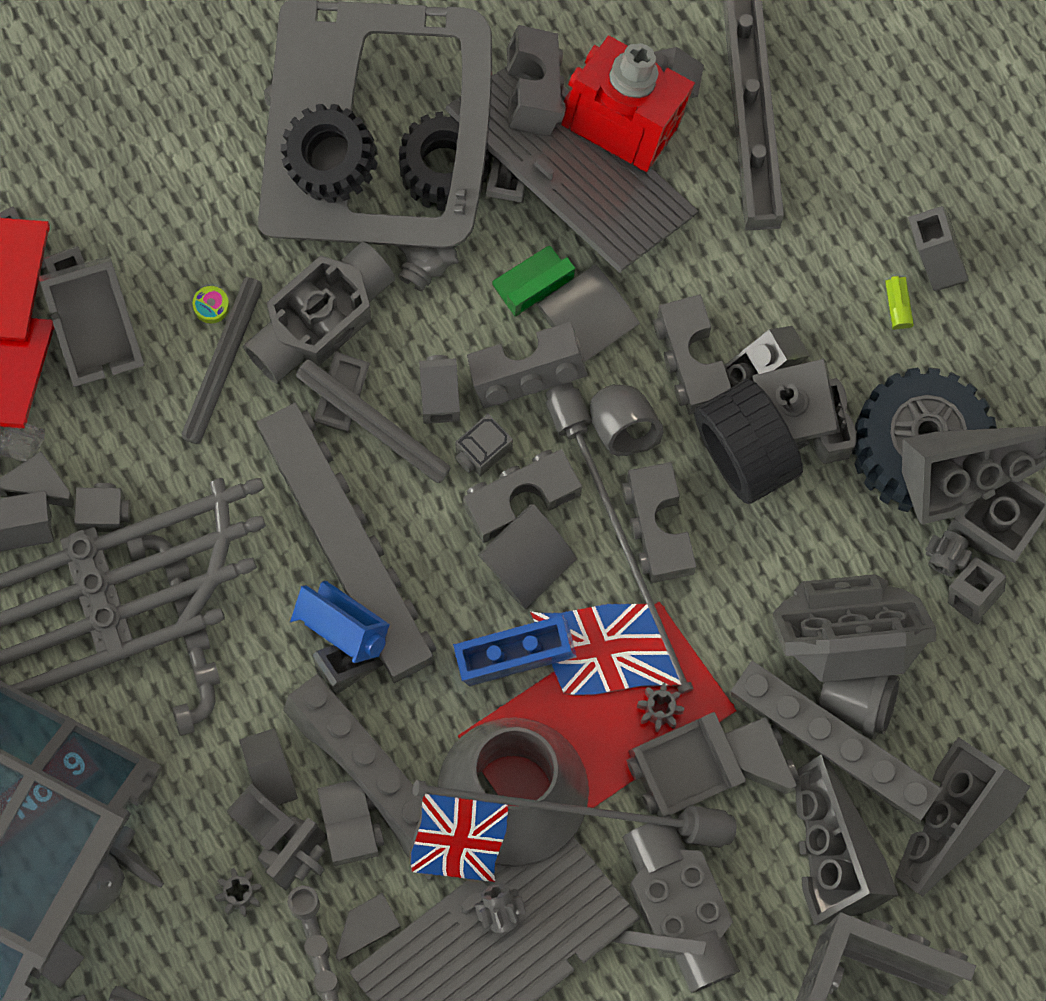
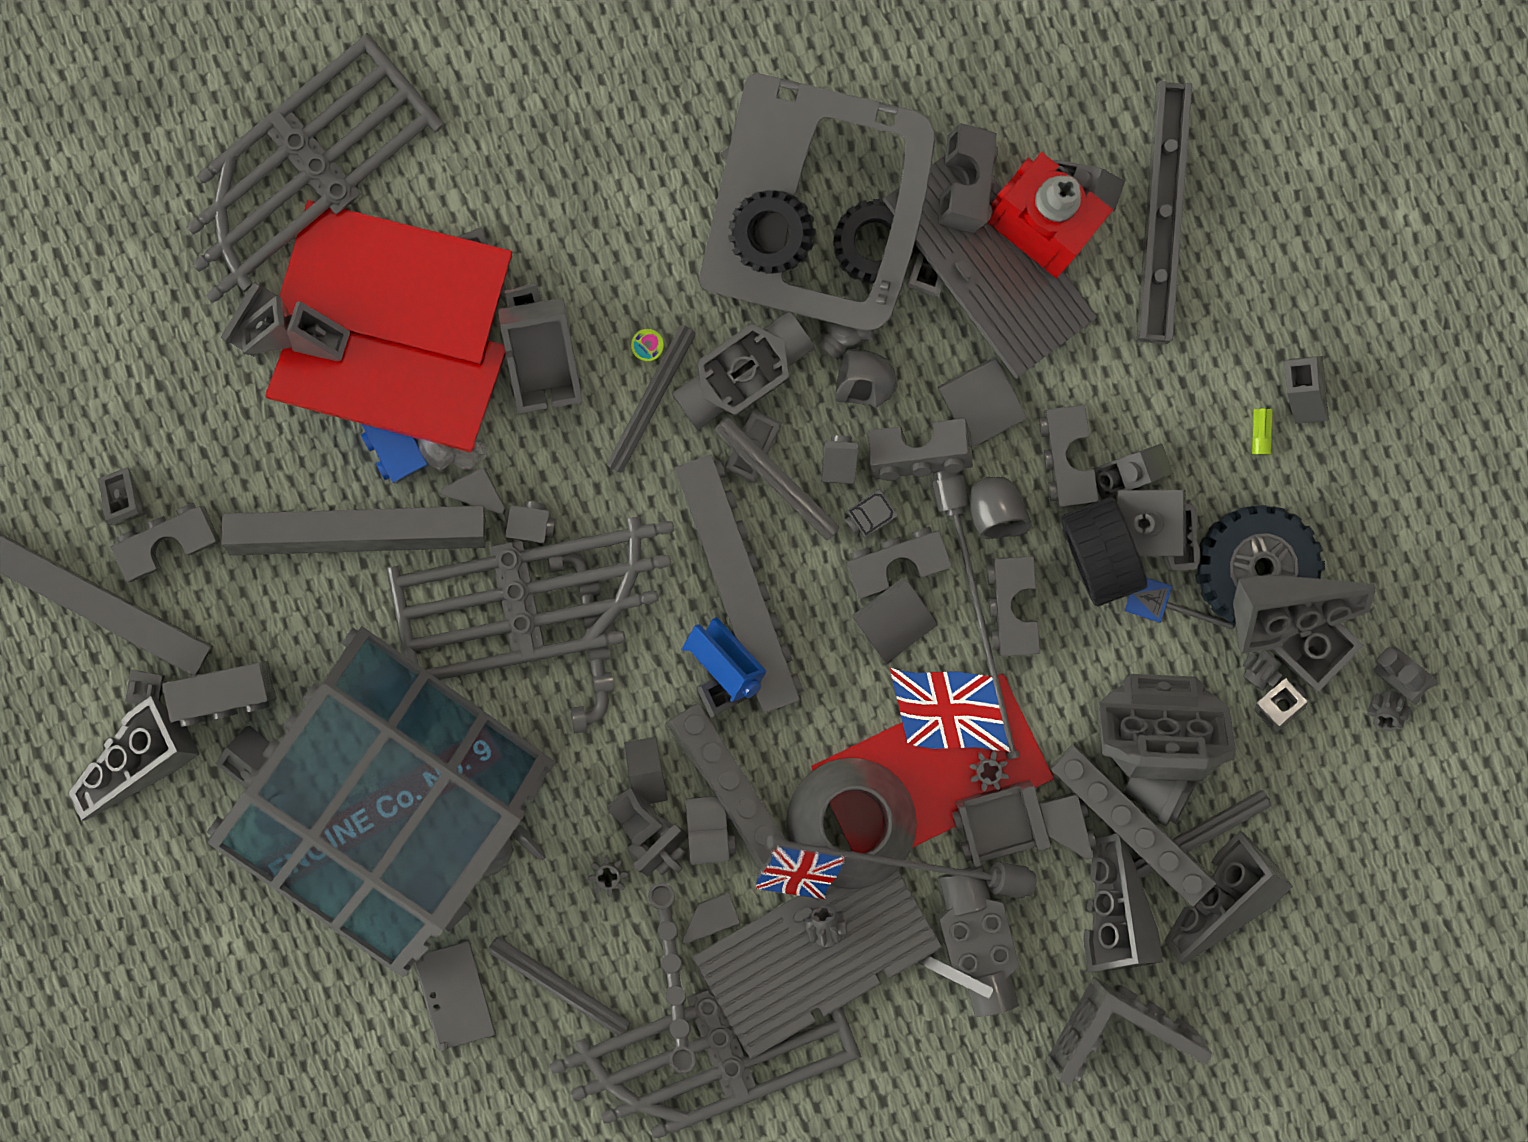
camera: 15 degrees right, 15 degrees up
(455, 301) = (865, 378): none -> dark grey piece
(515, 650) = (871, 706): blue brick -> none
(533, 280) = (938, 362): green panel -> none
(810, 499) = (1154, 599): none -> piece
(927, 737) = (1214, 826): none -> dark grey axle

